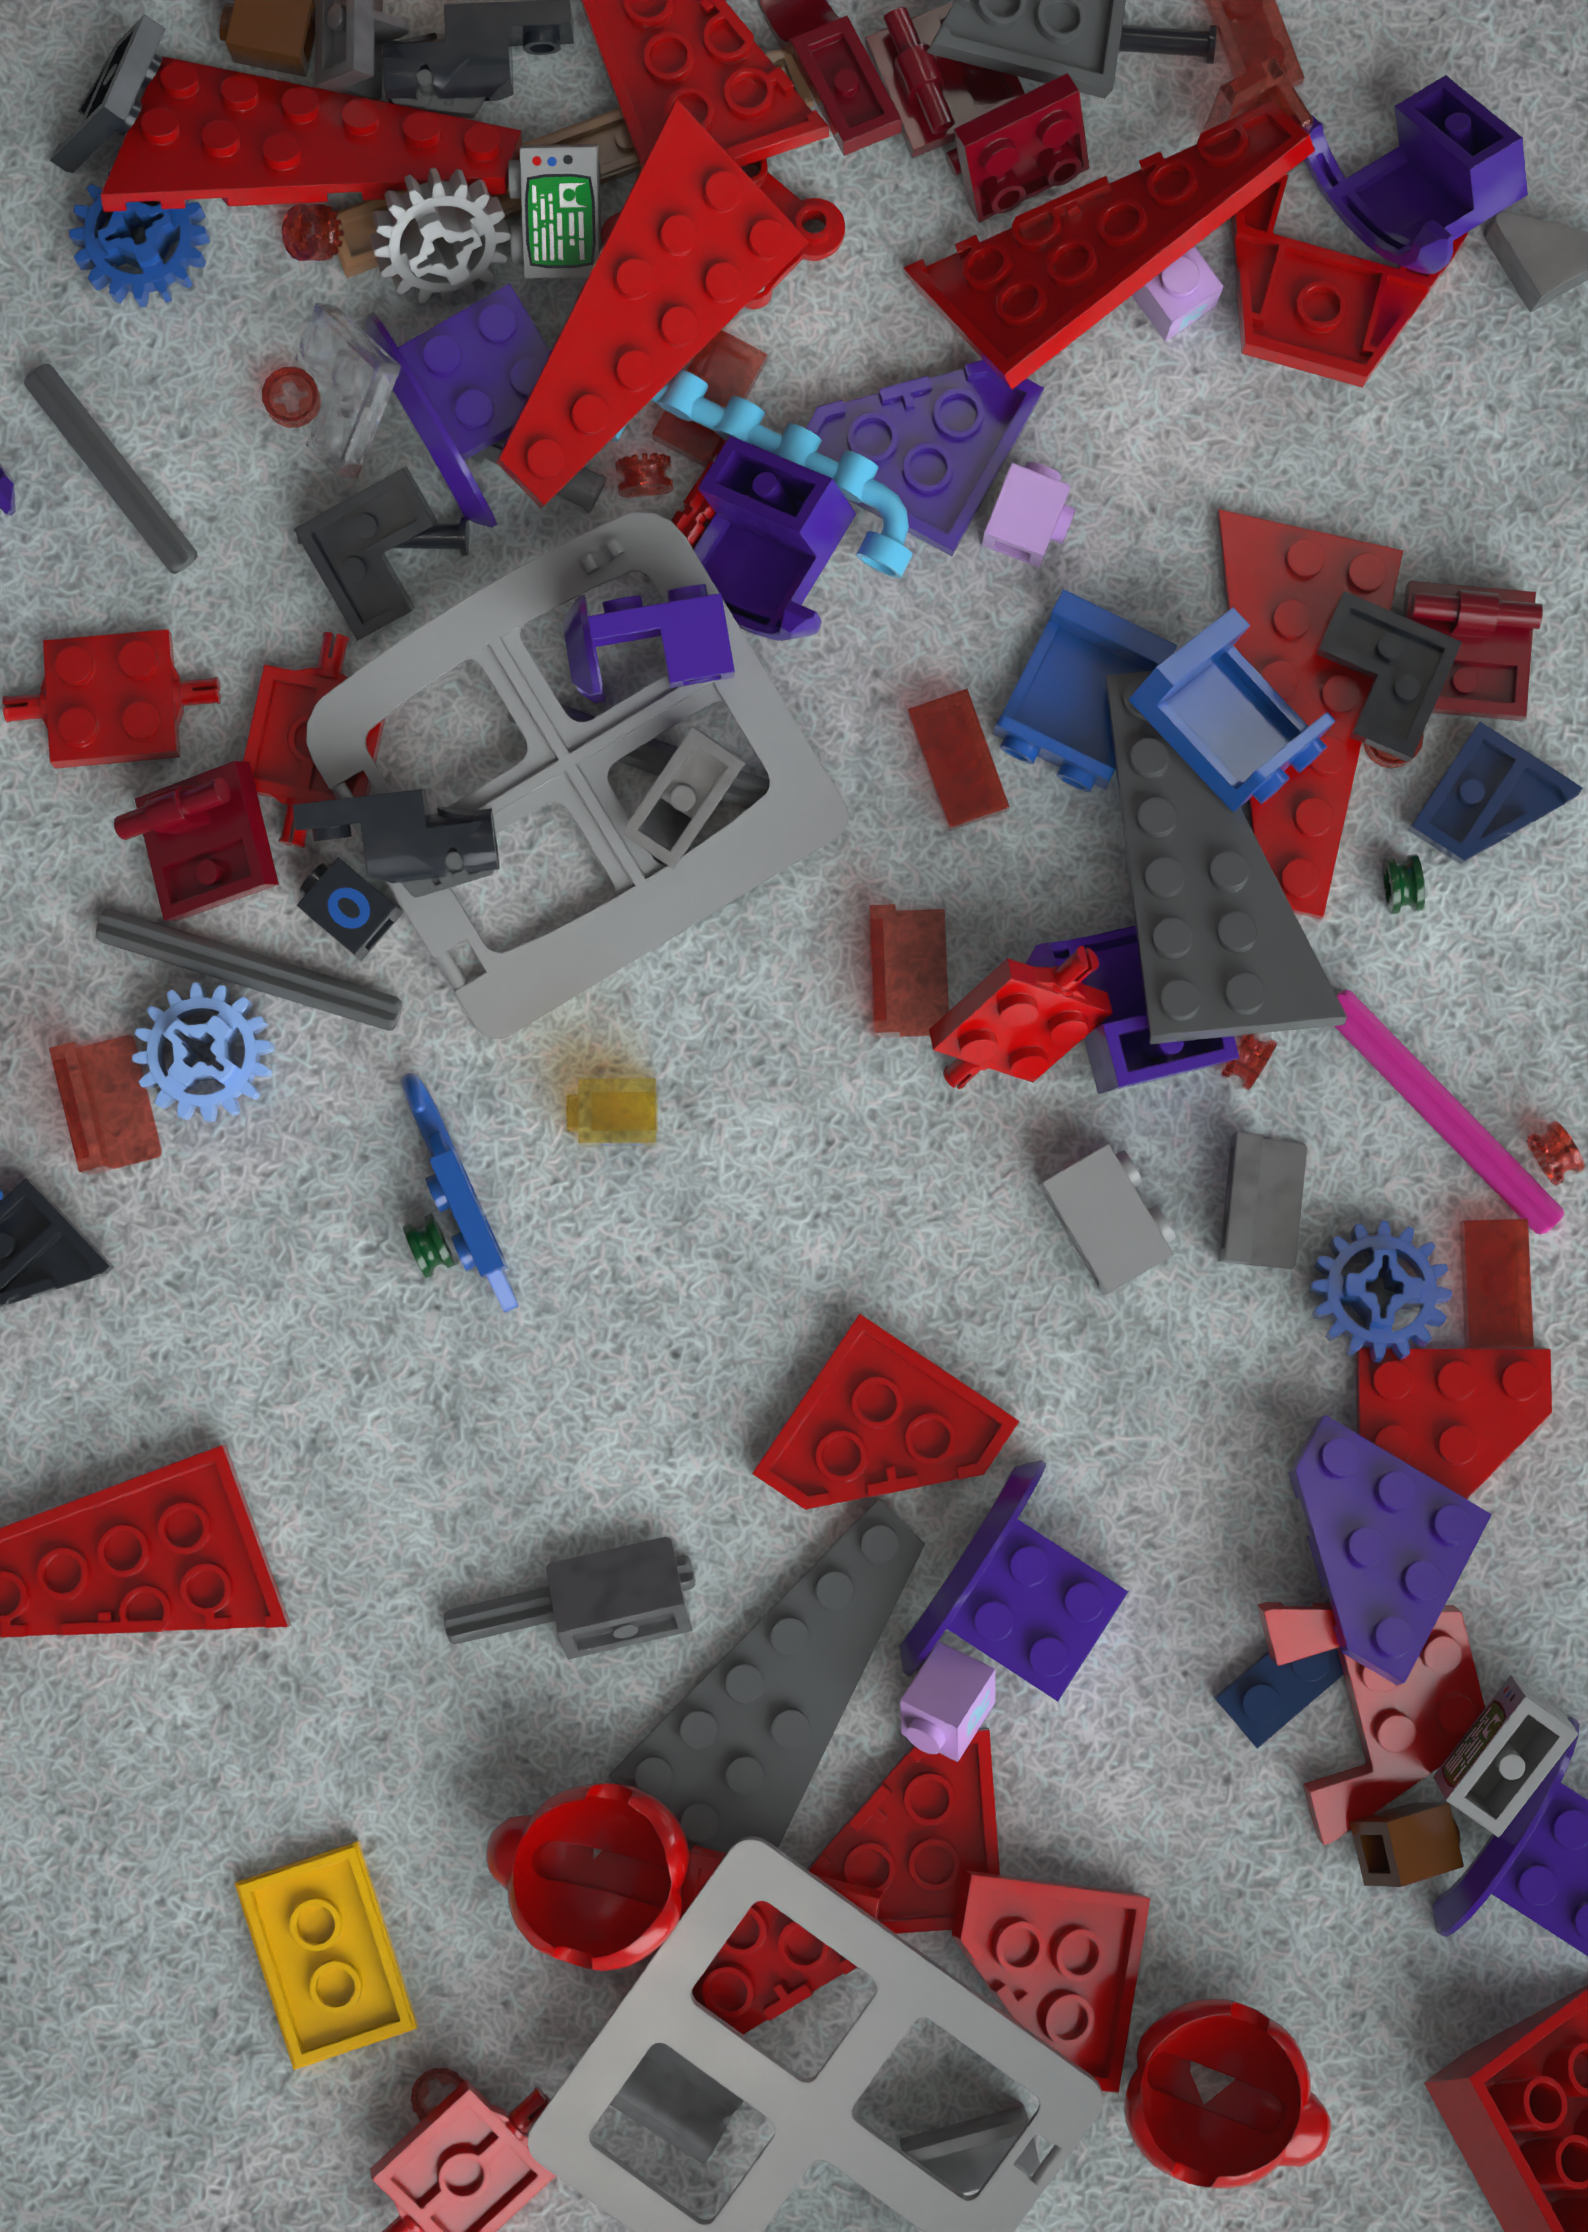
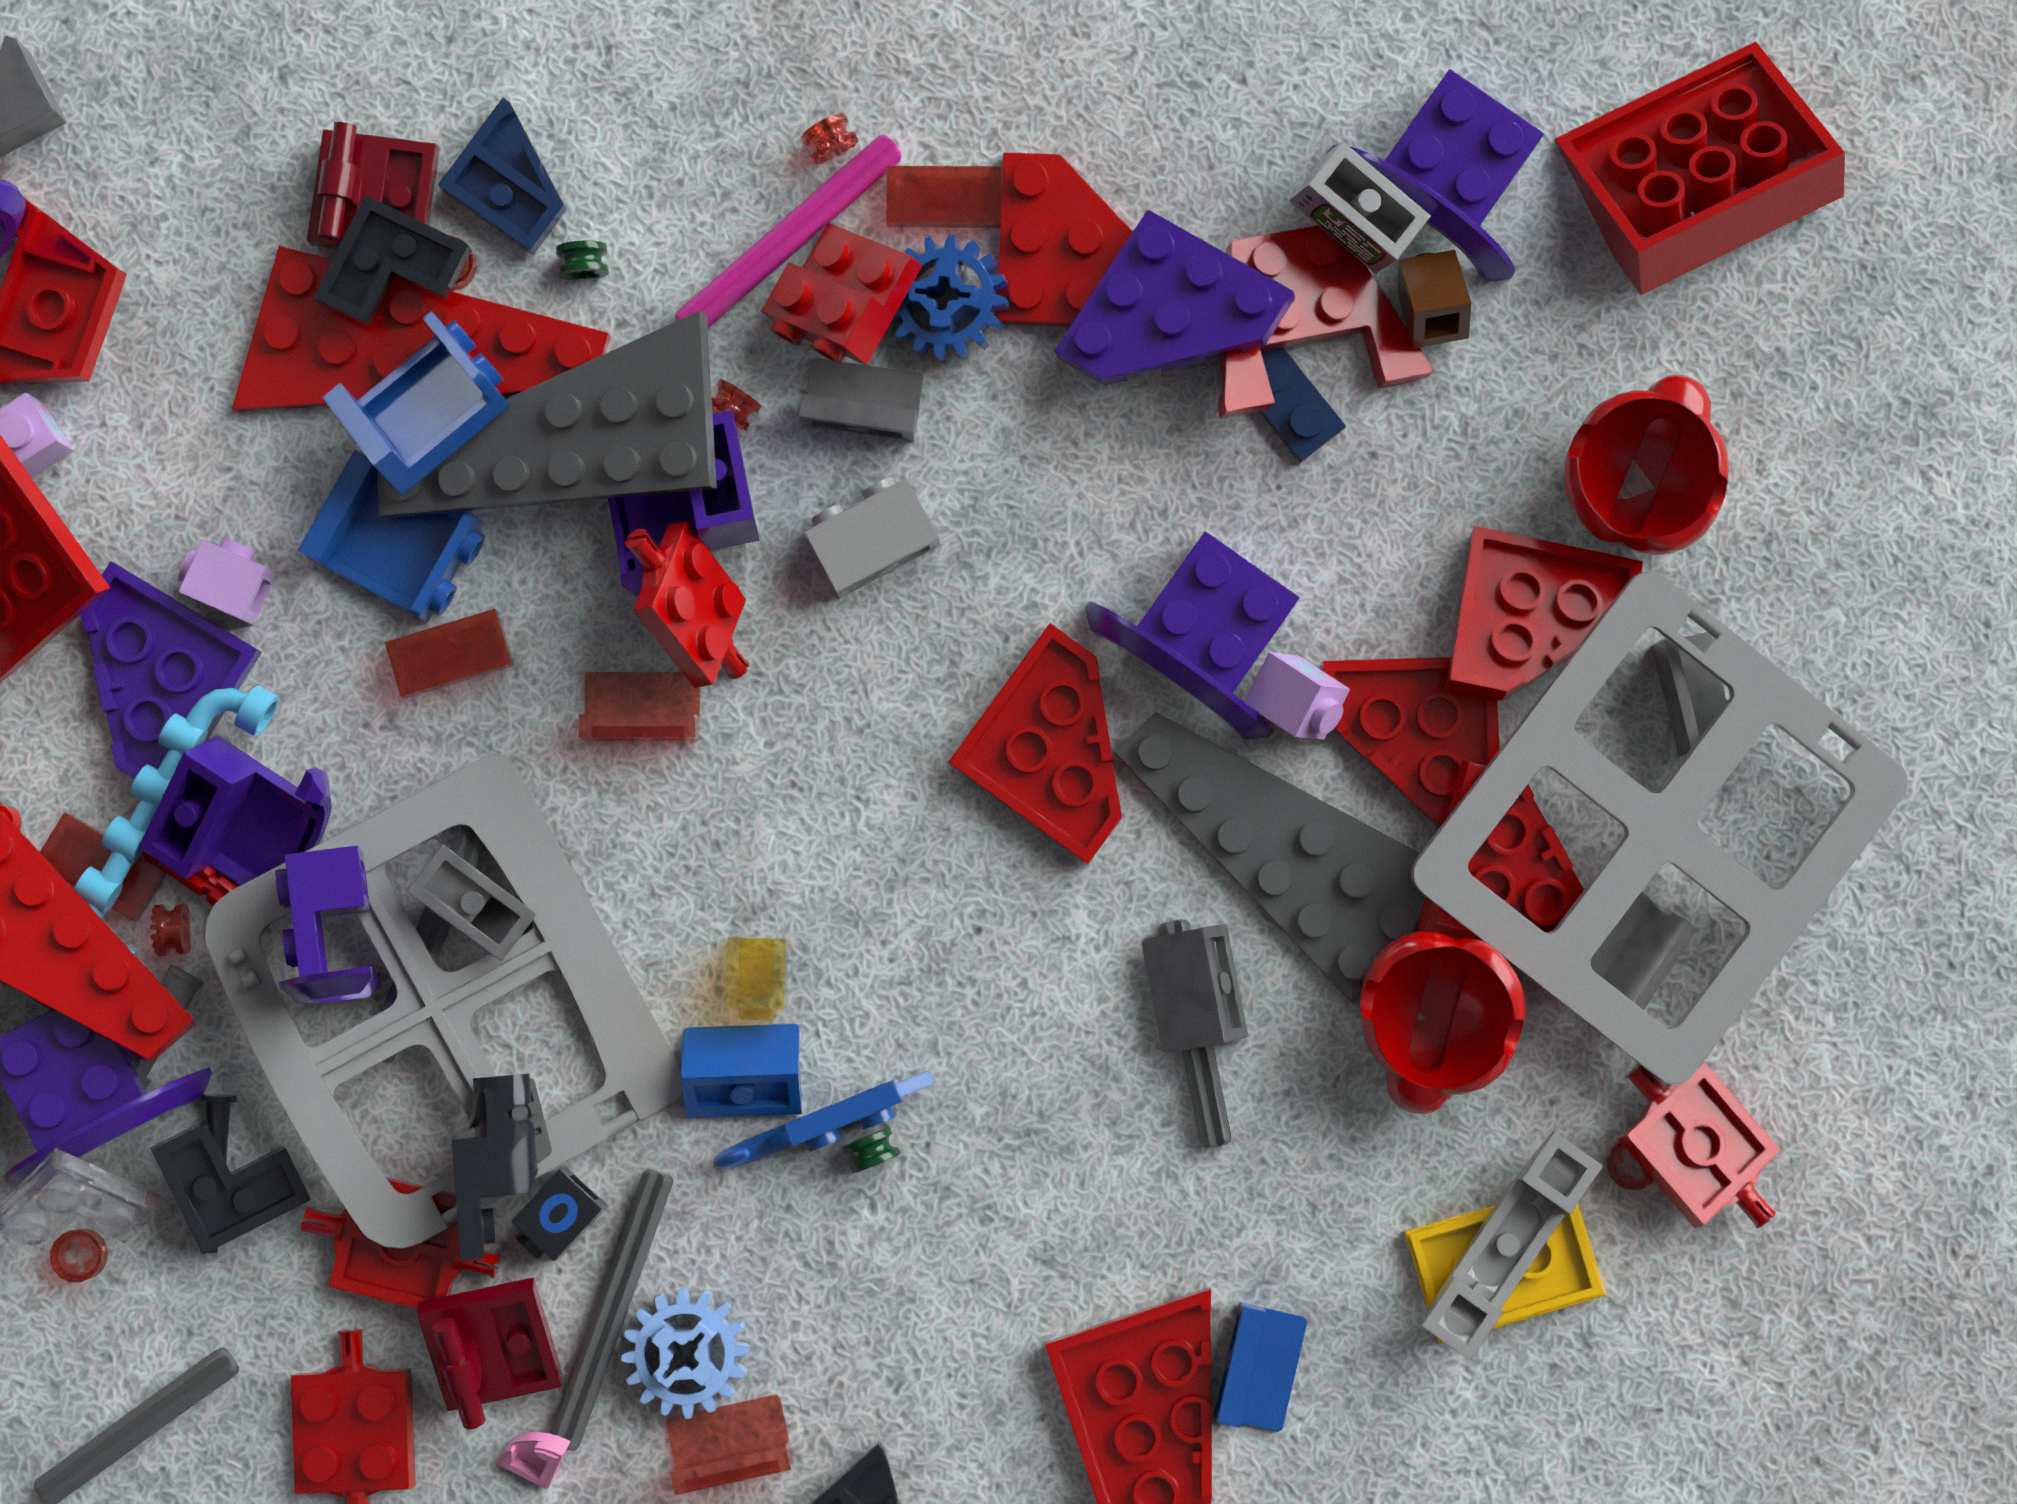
camera: 90 degrees left, 0 degrees up
(88, 894) = (534, 1456): none -> bright pink tile
(204, 1684) = (1260, 1368): none -> blue panel
(345, 1958) = (1509, 1244): none -> light grey slope
(512, 1100) = (741, 1071): none -> blue panel
(1377, 1173) = (841, 295): none -> red plate

